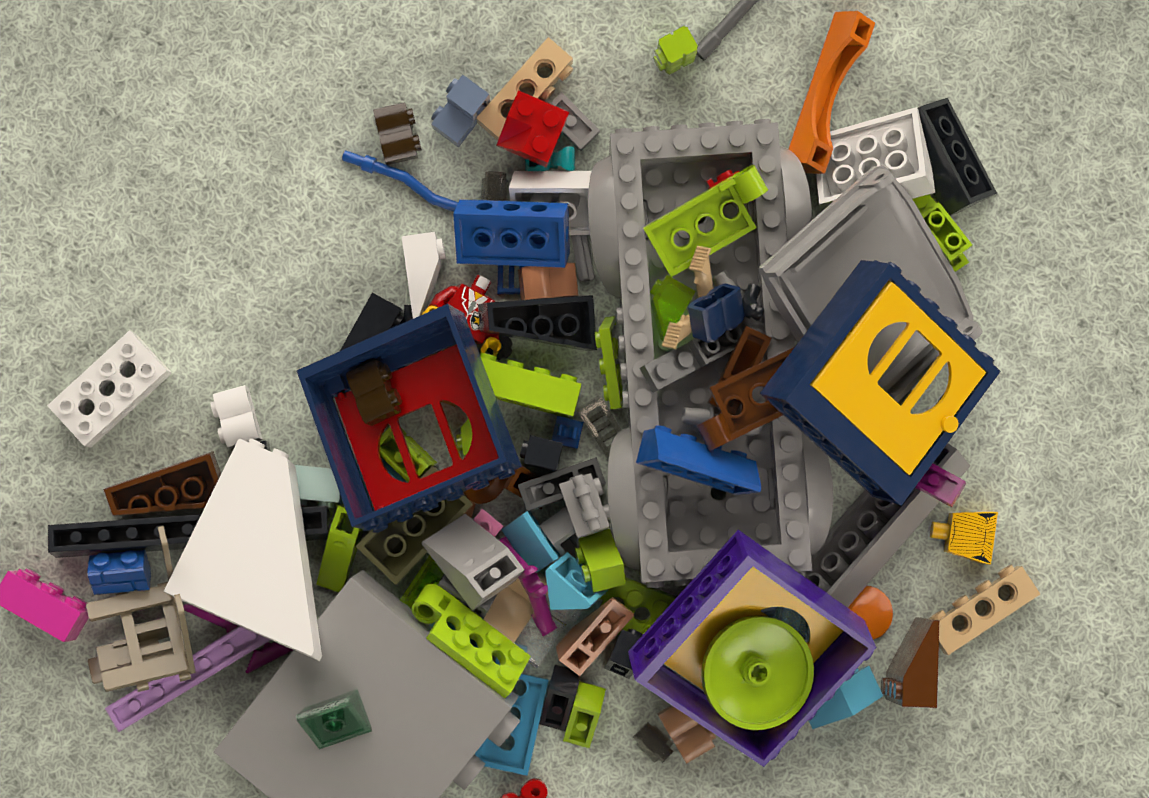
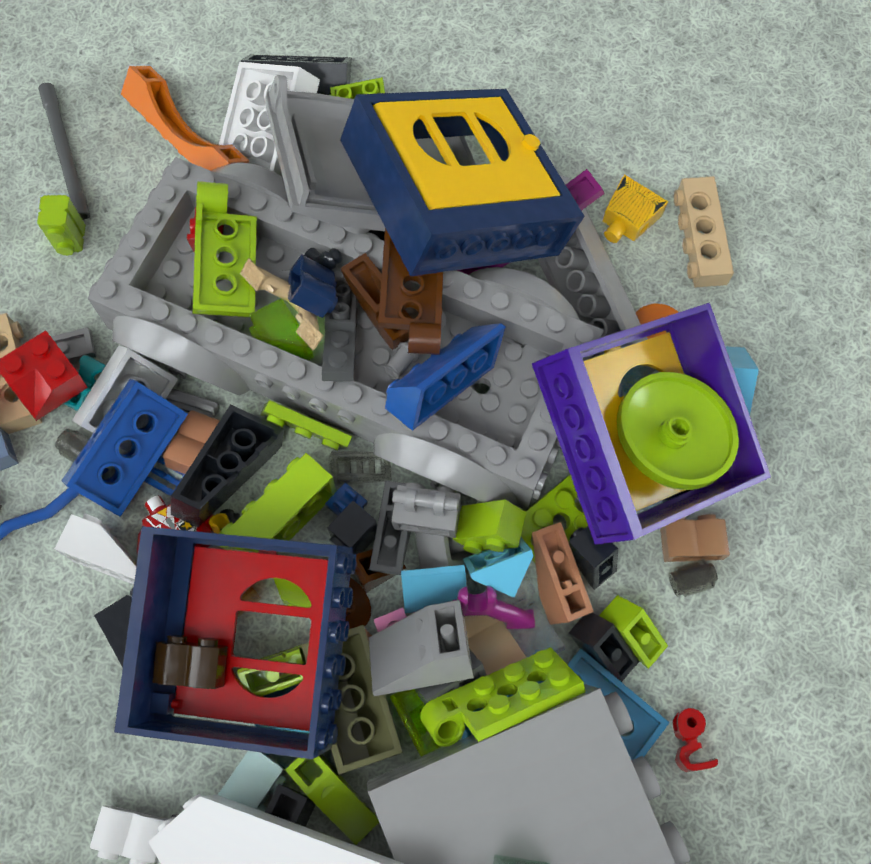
camera: 60 degrees left, 15 degrees down
(914, 669) = (739, 287): reddish brown slope -> none

